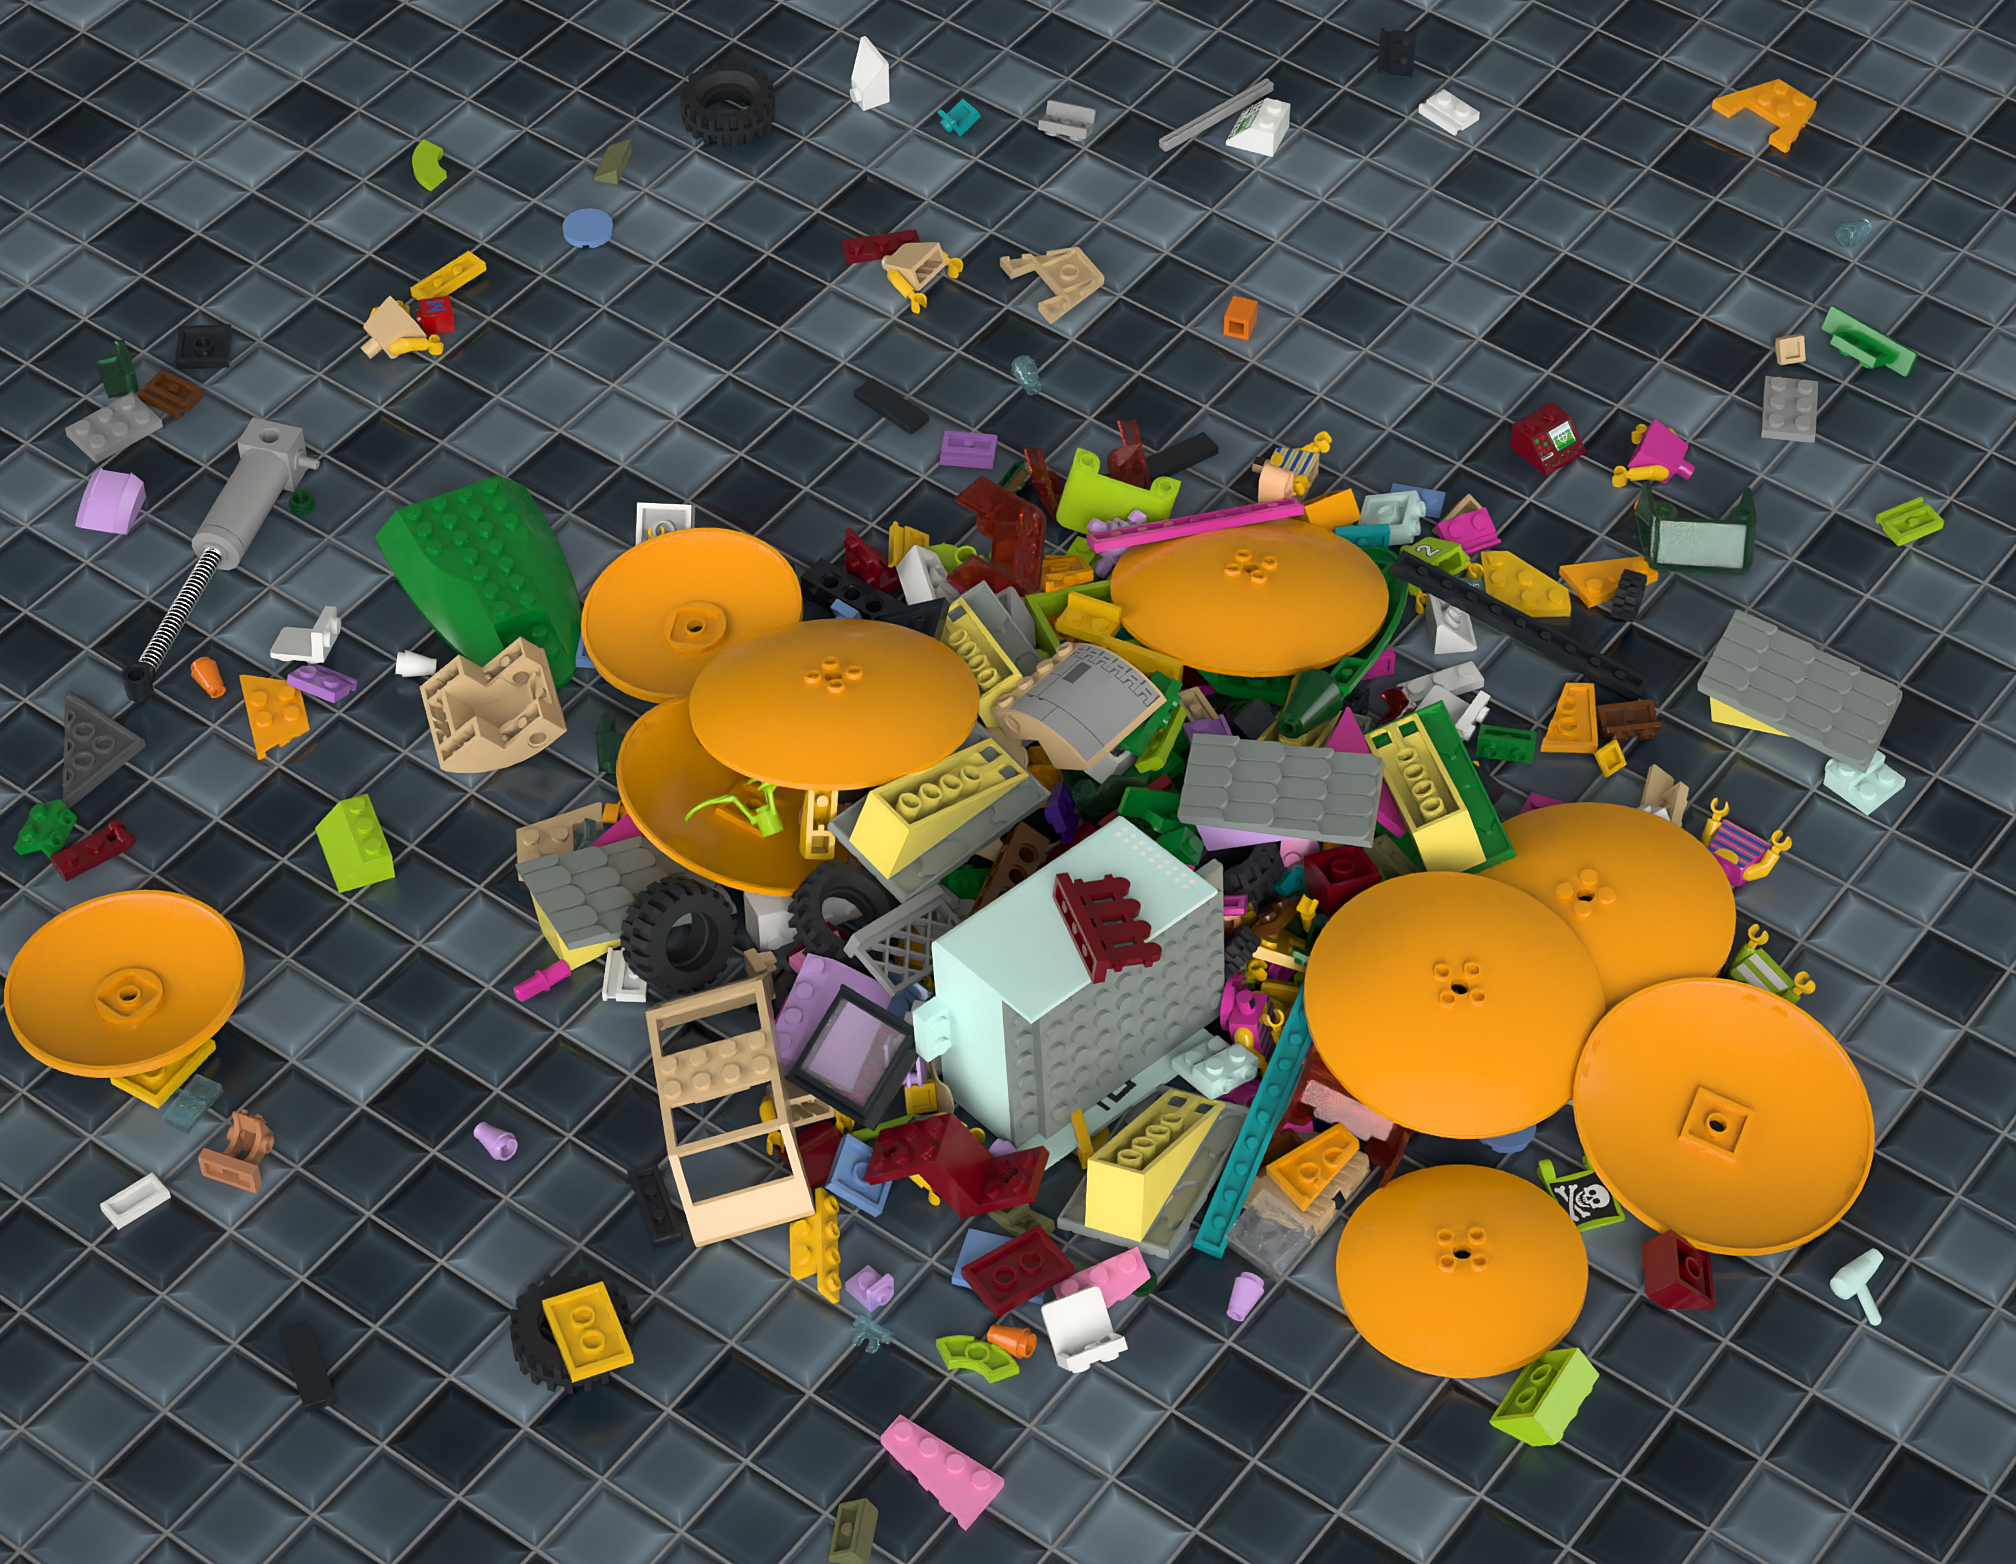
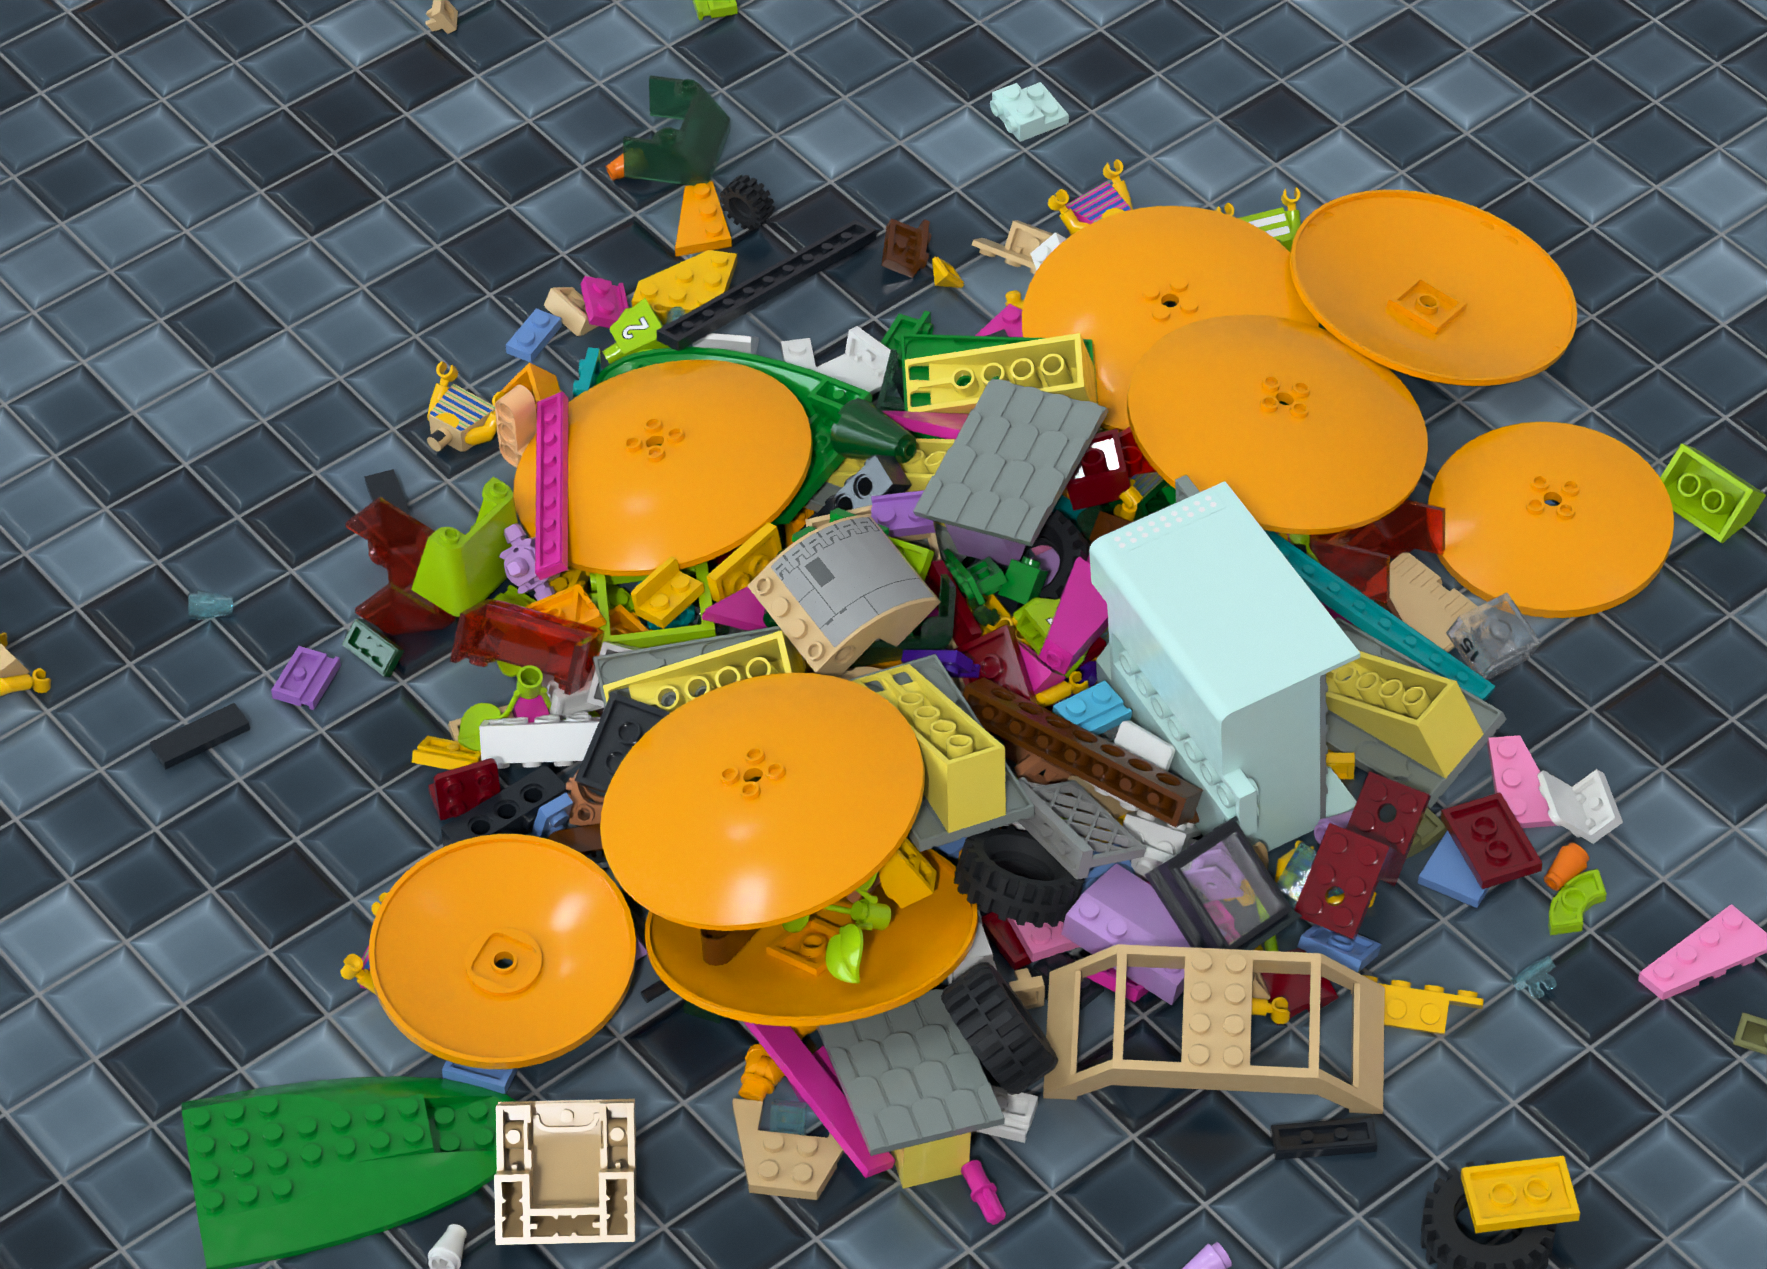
camera: 75 degrees left, 0 degrees up
(608, 743) = (665, 1067): clear green panel -> none
(669, 516) = (313, 972): white slope -> none
(870, 1288) = (1476, 969): lavender bracket -> none
(1066, 273) = (58, 541): tan wing -> none
(1093, 938) = (1257, 585): dark red fence -> none
(1240, 317) = (203, 409): orange brick -> none
(1245, 1294) = (1548, 680): lavender cone -> none
(1313, 1165) = (1416, 594): light orange wing -> none
(1398, 510) = (559, 351): light aqua plate -> none
(1547, 439) = (493, 216): dark red slope -> none
(1574, 721) = (888, 286): light orange wing -> none
(1582, 1196) = (1470, 416): flag -> none
(1655, 457) = (554, 137): dark pink torso -> none
(1677, 1273) = (1587, 374): dark red slope -> none
(1789, 409) = (520, 39): light grey plate -> none
(1796, 691) = (931, 112): light grey piece -> none
(1853, 1279) = (1617, 262): light aqua piece -> none

